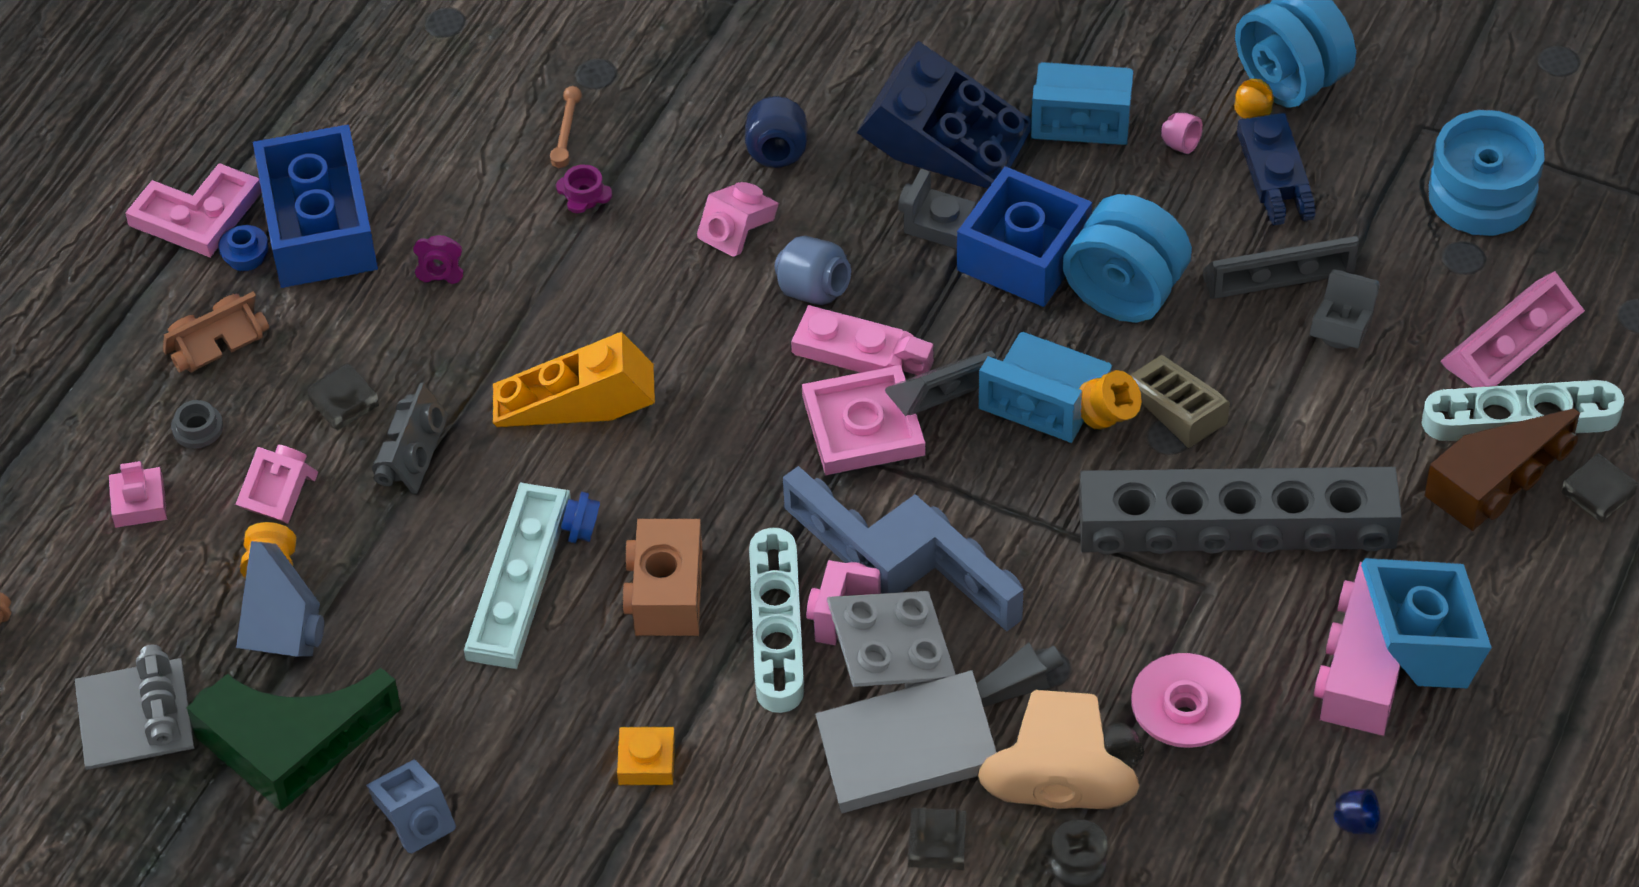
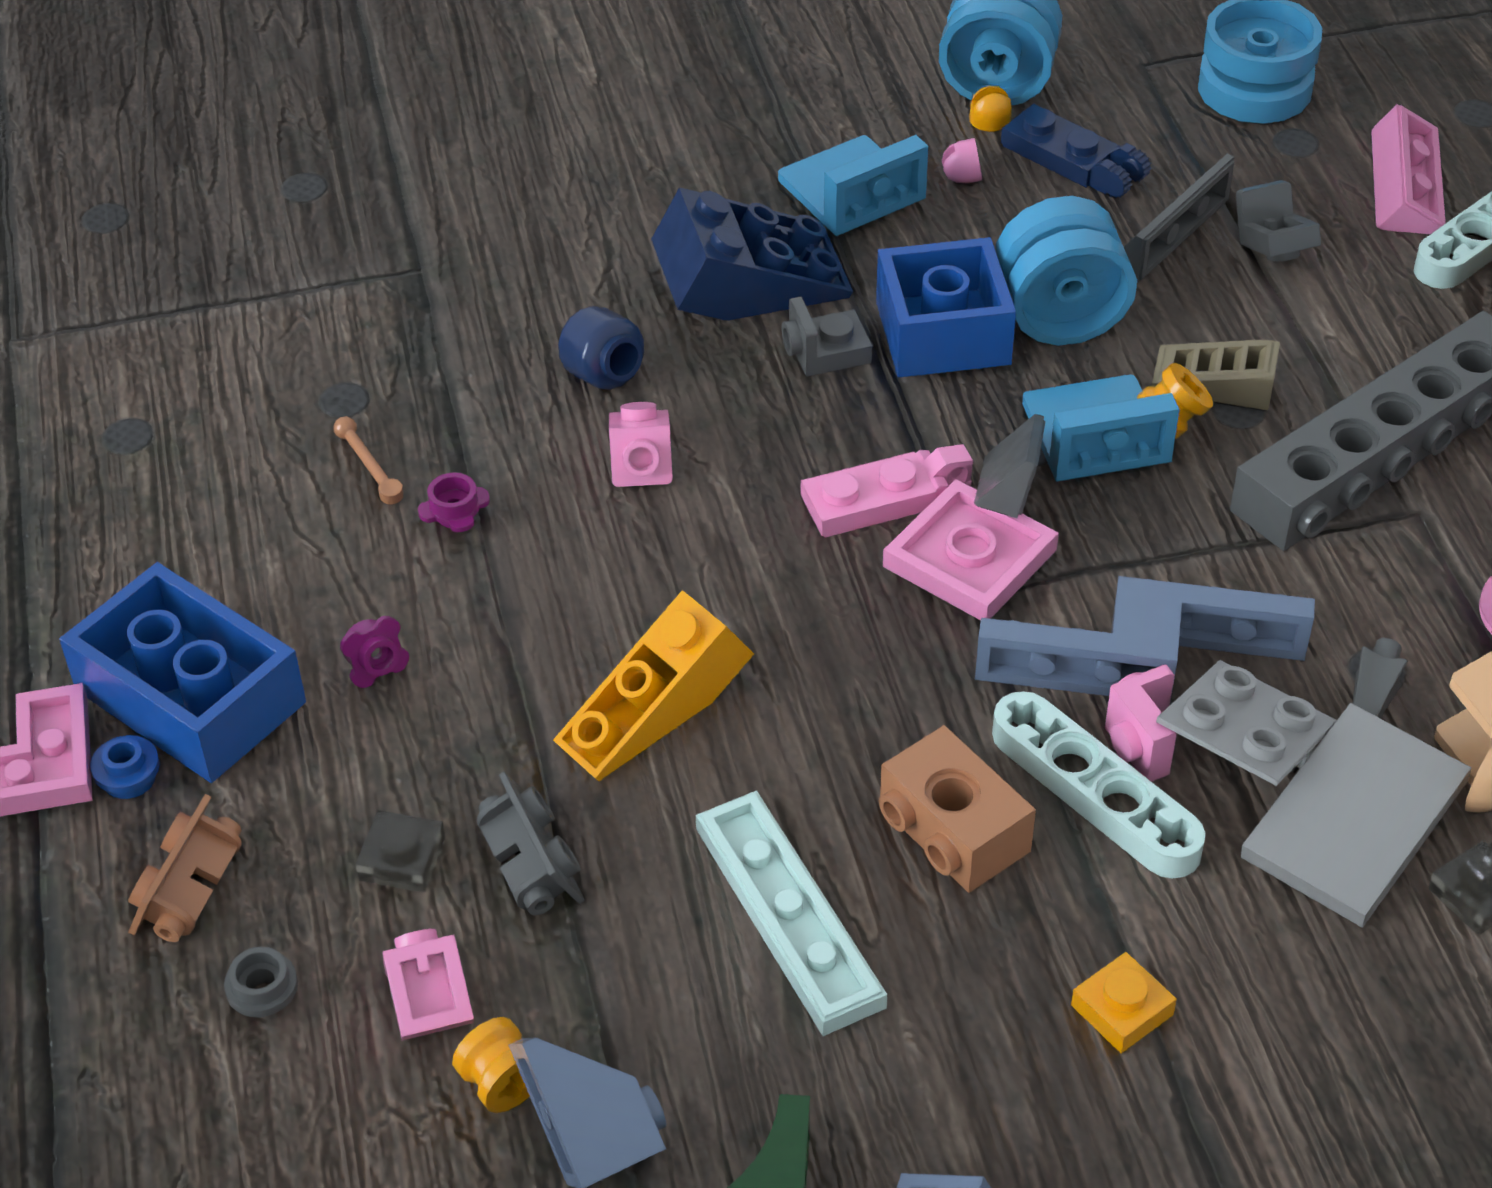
camera: 40 degrees left, 5 degrees down
(137, 495) = (263, 1106): bright pink tile -> none
(580, 518) = (802, 808): blue plate -> none
(812, 270) = (774, 446): sand blue head -> none

